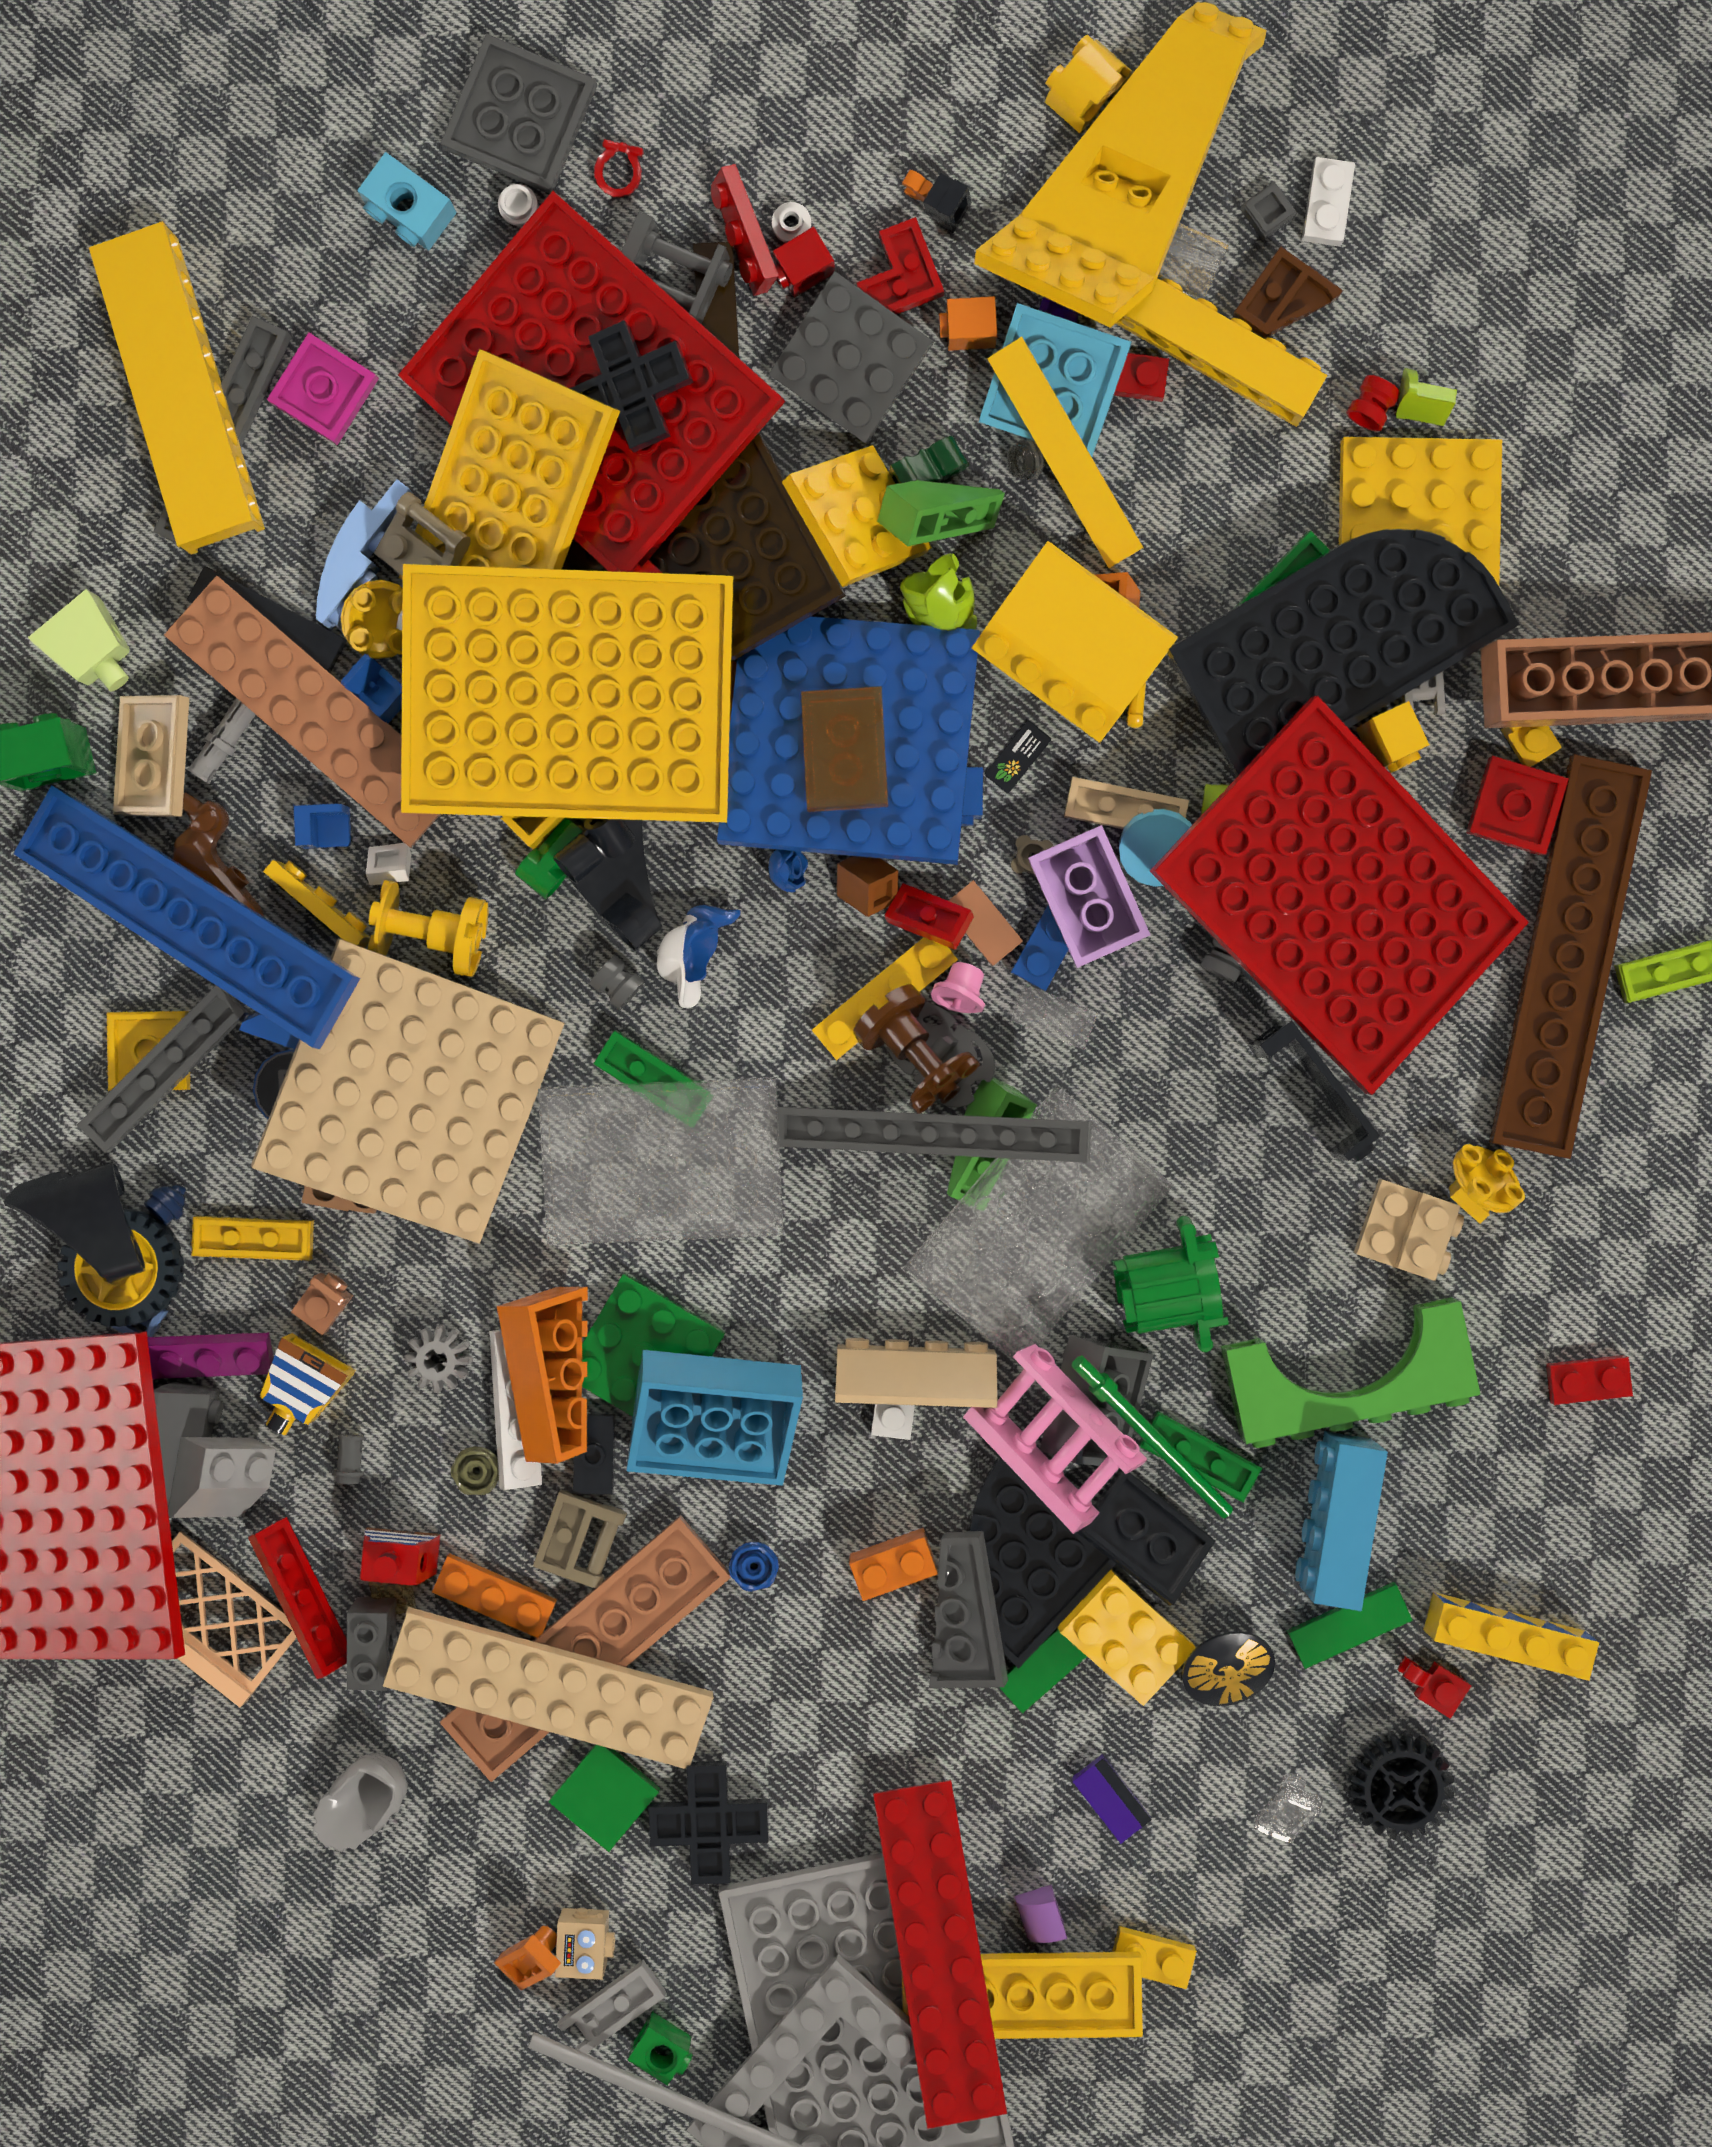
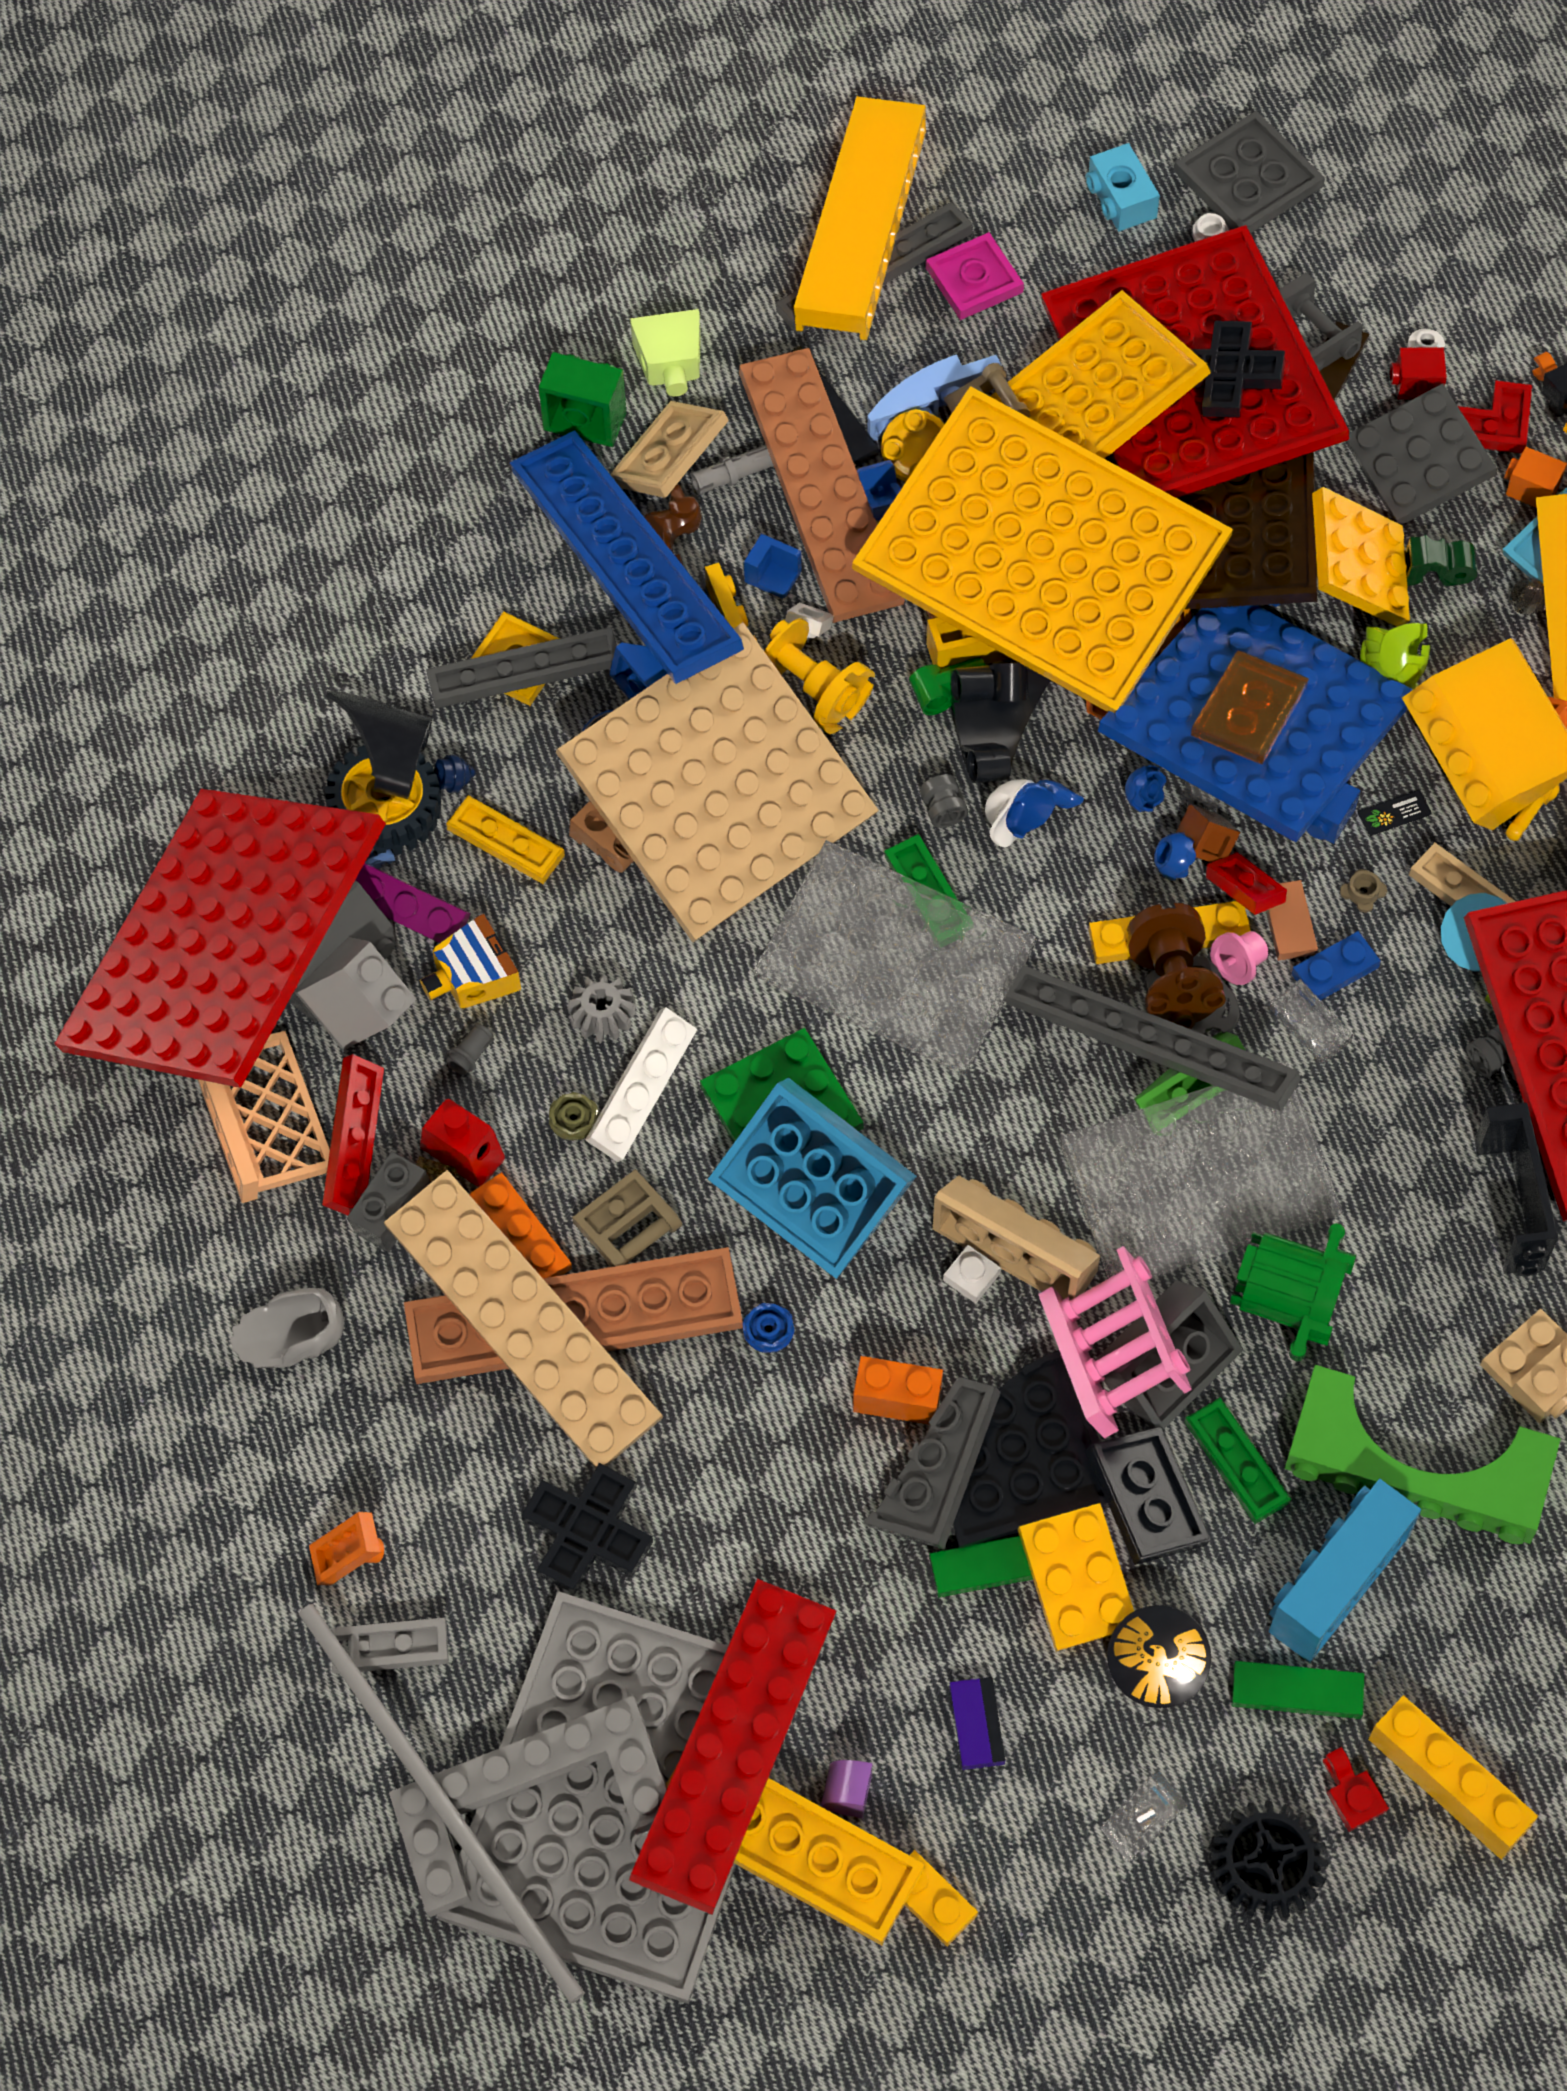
camera: 30 degrees right, 25 degrees down
(322, 1302) = (532, 916): nougat bracket -> none
(547, 1371) = (693, 1054): orange wedge -> none
(583, 1943) = (403, 1569): tan head -> none
(595, 1468) = (685, 1161): black plate -> none
(604, 1795) = (506, 1454): green tile -> none
(633, 153) = (1325, 242): red piece -> none
(658, 2032) = (408, 1689): green brick -> none
(743, 230) = (1383, 329): red plate -> none
(851, 922) = (1174, 855): none -> blue plate
(936, 511) = (1433, 586): bright green slope -> none
(1089, 896) = (1398, 935): lavender slope -> none
(1106, 1390) = (1184, 1318): green bar -> none

